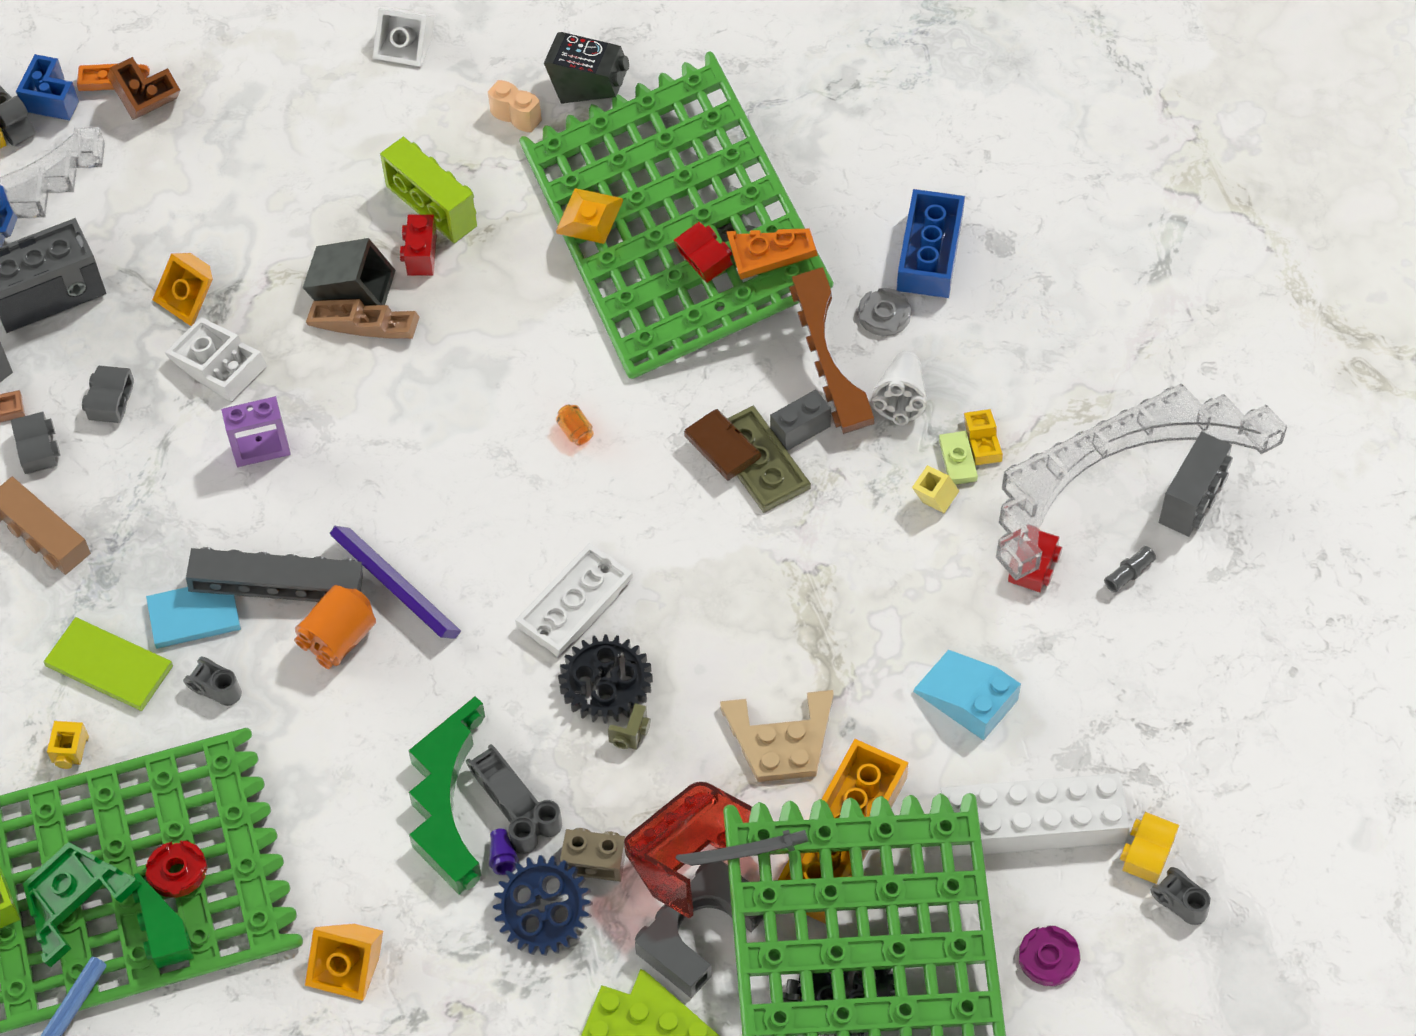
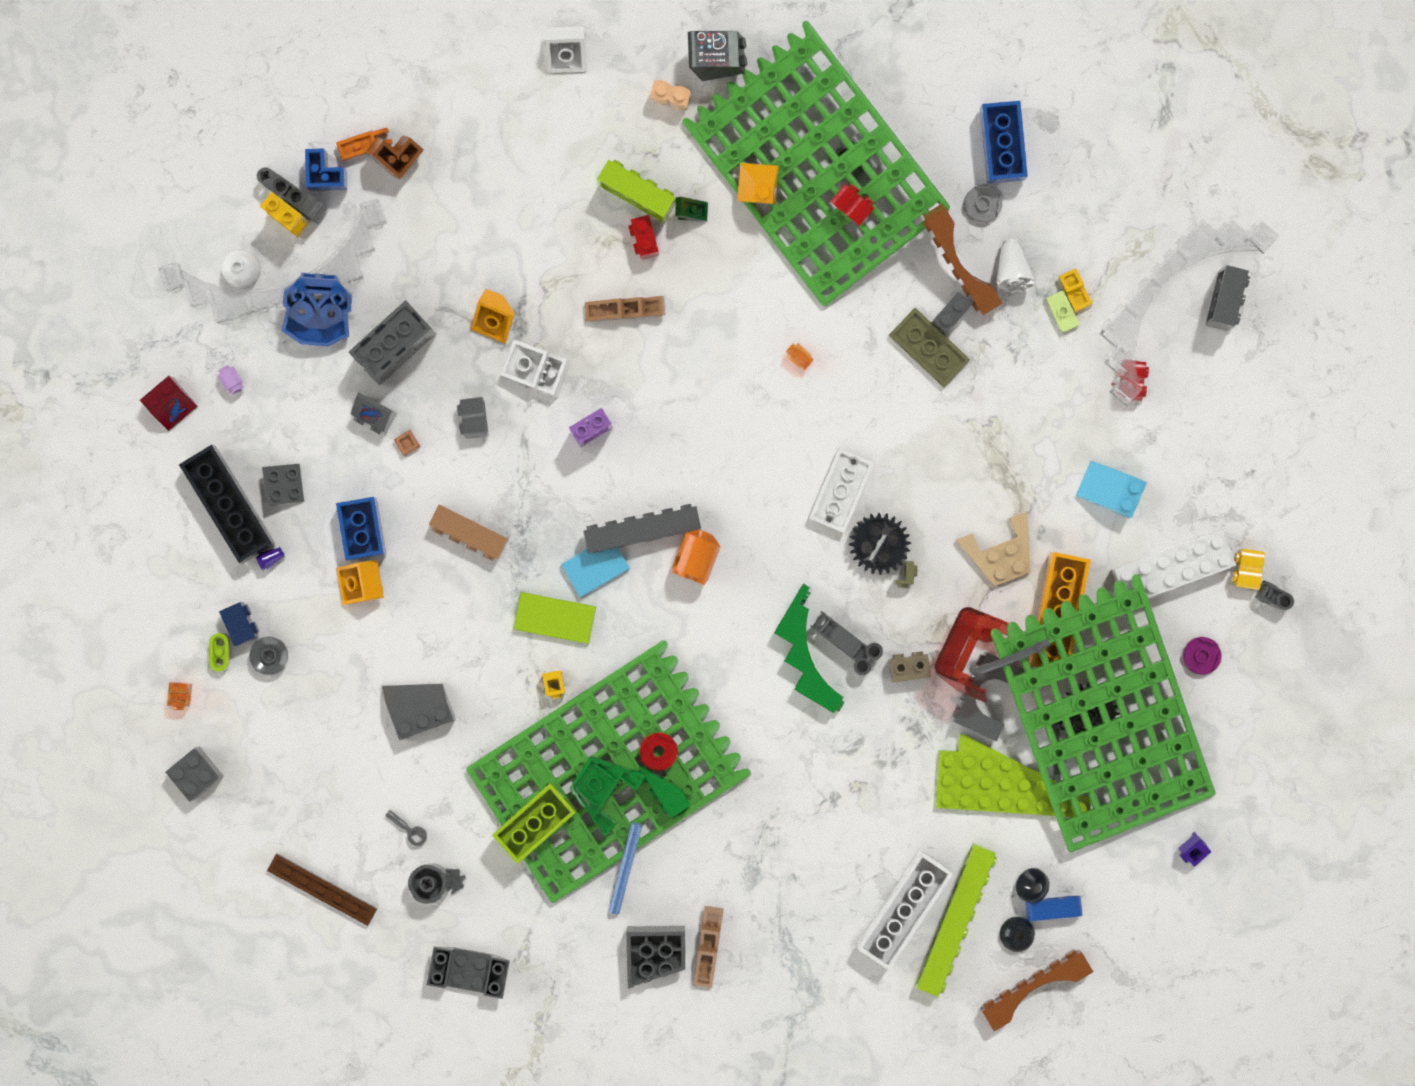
camera: 20 degrees left, 30 degrees up
(35, 443) = (439, 469): dark grey brick -> none
(209, 680) = (627, 613): dark grey piece -> none
(343, 959) = (781, 777): light orange slope -> none
(349, 273) = (604, 277): pearl dark grey slope -> none
(395, 582) = (720, 510): dark purple tile -> none
(492, 228) = (691, 209): none -> dark green slope
(502, 854) = (852, 680): dark purple cone -> none
(536, 879) = (899, 725): dark blue gear -> none
(722, 444) = (904, 347): reddish brown piece -> none
(768, 251) = (900, 194): orange wing -> none
(935, 489) = (1056, 346): light yellow brick -> none
(1130, 569) = (1195, 369): dark grey pin -> none

